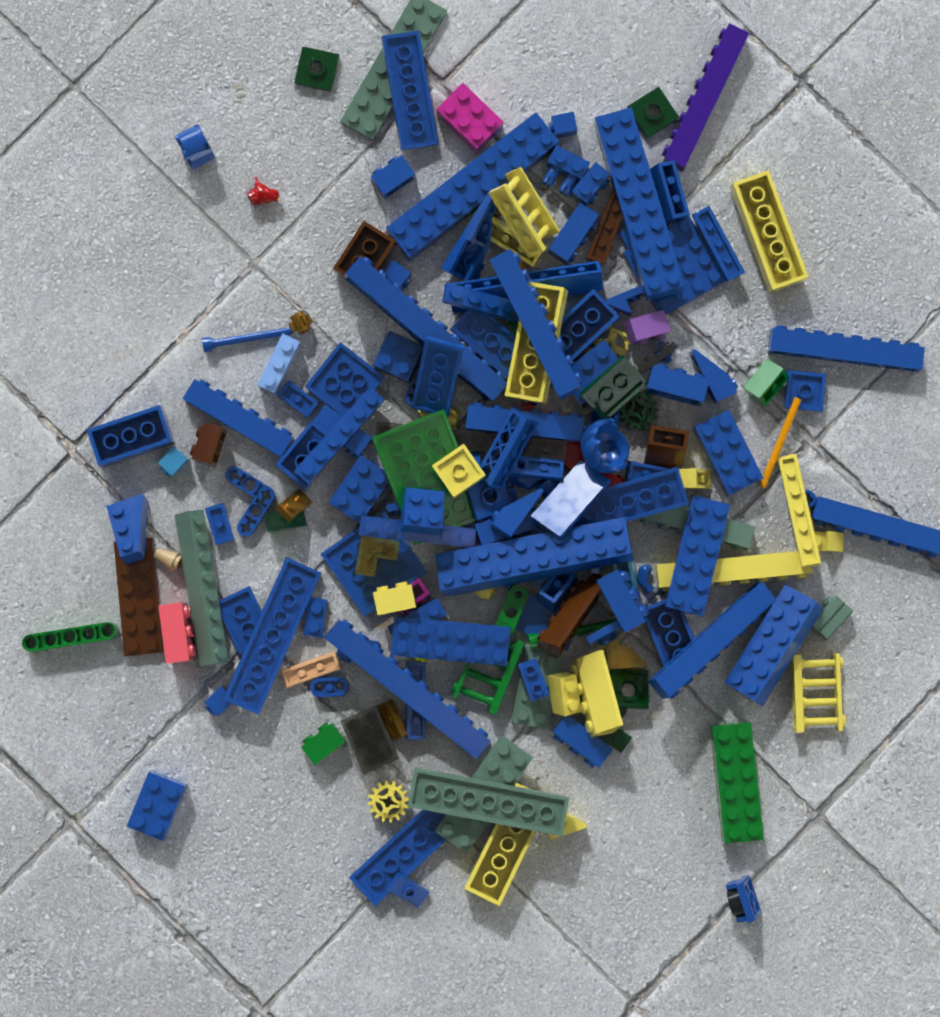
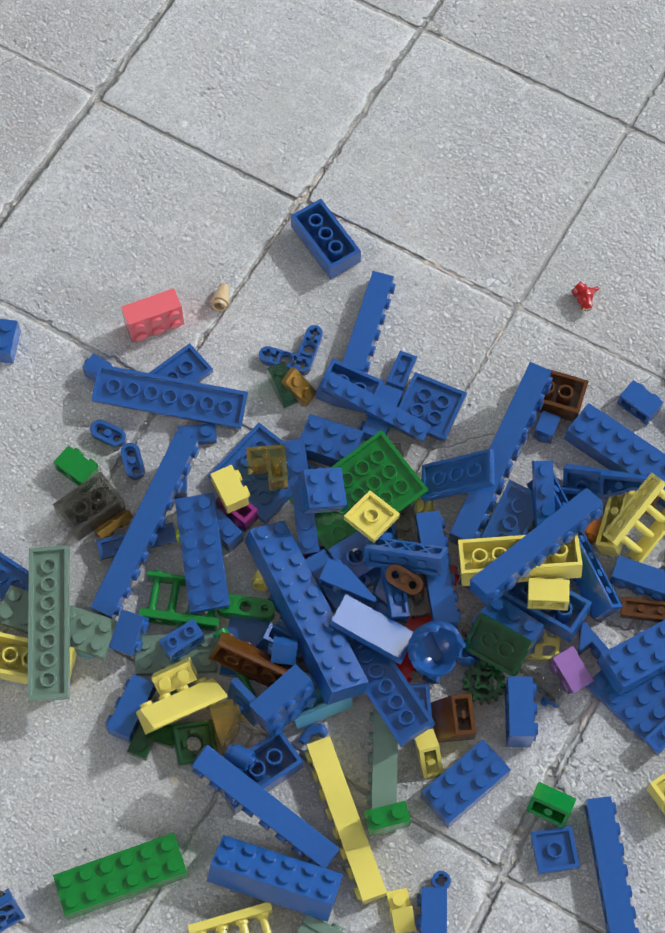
camera: 80 degrees right, 20 degrees down
(61, 636) = (130, 241): green beam -> none
(129, 527) = (240, 254): blue wedge -> none
(139, 604) = (187, 278): reddish brown plate -> none
(173, 462) = (312, 280): dark azure brick -> none
(195, 146) = (608, 228): blue brick -> none
(201, 588) = (200, 328): sand green brick -> none
(208, 444) = (336, 305): reddish brown slope -> none
(210, 344) = (430, 285): blue piece -> none
(219, 524) = (264, 331): blue plate -> none
(279, 364) = (429, 345): light blue brick -> none
(293, 704) = (109, 433): none -> blue plate
(300, 323) = (474, 354): pearl gold gear -> none
(310, 669) = (145, 441): light nougat tile -> none
(397, 803) = (27, 532): light yellow gear -> none
(398, 357) = (467, 439): blue brick -> none
(512, 727) = (129, 633): none -> blue brick
(530, 458) = (403, 580): none -> reddish brown plate
(571, 825) = (44, 716): light yellow slope -> none
(572, 587) = (283, 650): none -> blue brick
(577, 326) = (548, 593): none -> light yellow brick
(662, 651) = (240, 756): none -> blue brick
(697, 556) = (349, 772): blue plate -> none
(720, 383) = (536, 755): blue slope -> none
(749, 532) = (387, 818): none -> green brick
(780, 442) = (496, 836): light orange piece -> none
(799, 511) = (425, 872): light yellow tile -> none

